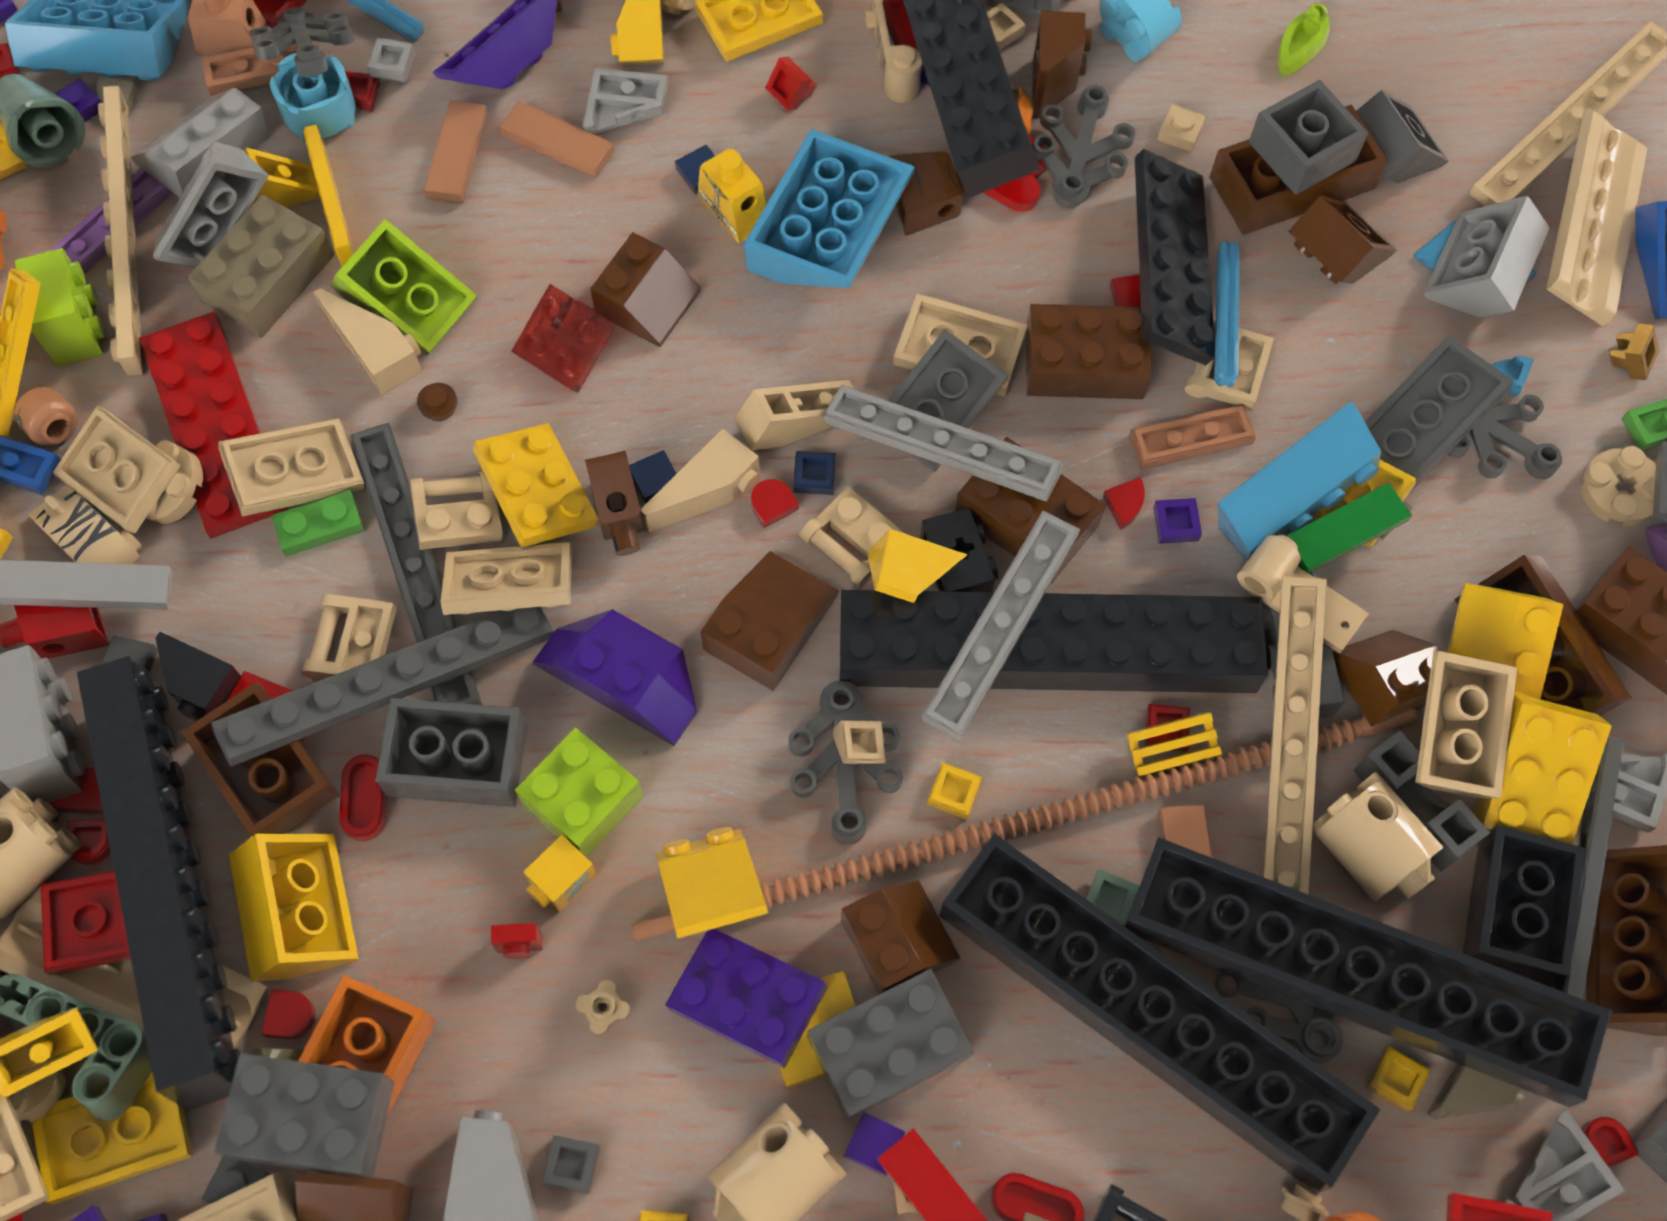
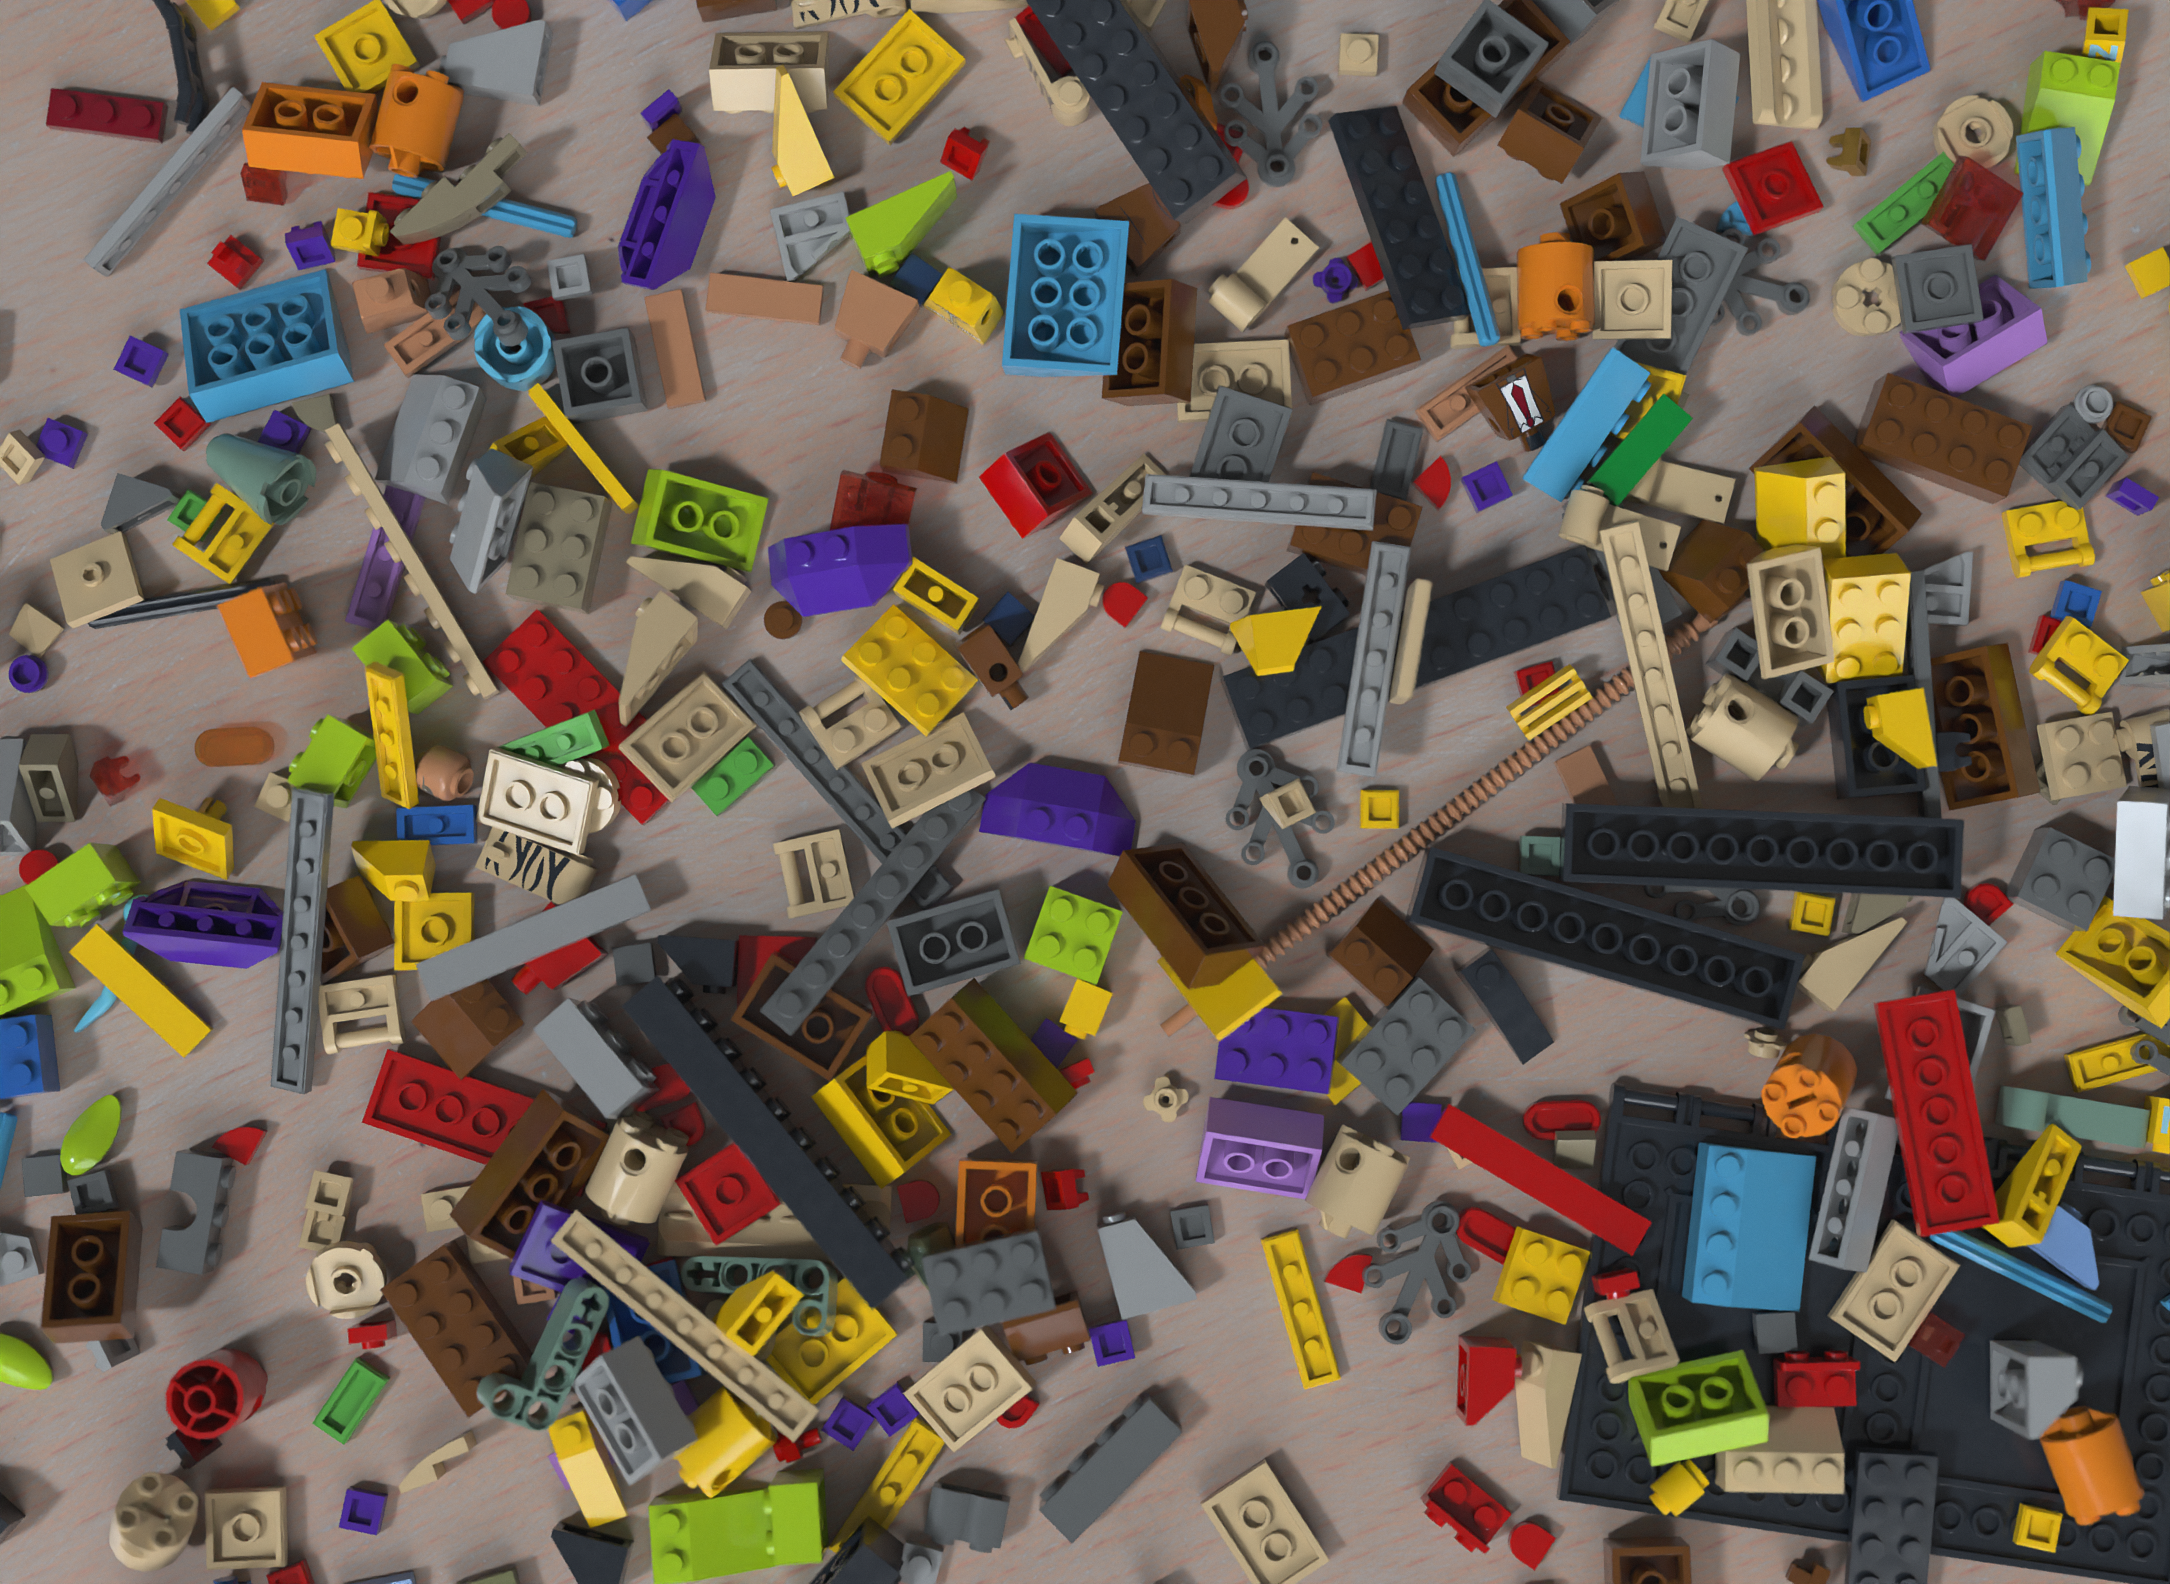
camera: 20 degrees left, 20 degrees up
(173, 420) = (562, 741): none -> bright green plate
(291, 374) = (658, 644): none -> tan slope
(340, 864) = (902, 1070): none -> yellow slope
(374, 140) = (600, 376): none -> dark grey brick
(431, 891) = (993, 1065): none -> reddish brown brick
(444, 1061) = (1061, 1189): none -> red tile
(507, 900) = (1053, 1042): none -> dark purple tile
(512, 358) = (839, 567): none -> dark purple wedge
(589, 419) = (936, 596): none -> yellow brick
(645, 181) = (872, 318): none -> nougat torso
(680, 1099) = (1260, 1148): none -> medium lavender slope
(701, 805) = (1184, 914): none -> reddish brown slope
(708, 107) = (896, 226): none -> lime slope
(728, 362) = (1035, 484): none -> red slope
(895, 279) = (1154, 345): none -> reddish brown brick
(1017, 1046) = (1505, 1005): none -> black slope
(1023, 271) = (1263, 276): none -> tan door
(1045, 608) = (1410, 641): none -> tan tile
(1092, 286) = (1335, 269): none -> dark purple plate
(1098, 463) = (1396, 459): none -> dark grey tile
(1232, 445) = (1516, 400): none -> reddish brown torso
(1306, 363) = (1555, 288): none -> orange cylinder
(1378, 592) = (1684, 491): none -> tan door
(1382, 332) = (1616, 218): none -> reddish brown slope
(1385, 391) = (1633, 299): none -> tan plate
(1415, 1146) = (1837, 968): none -> tan slope
(1549, 356) = (1772, 187): none -> red tile
(1562, 890) = (1902, 725): none -> yellow slope
(1603, 941) = (1946, 753): none -> black tile

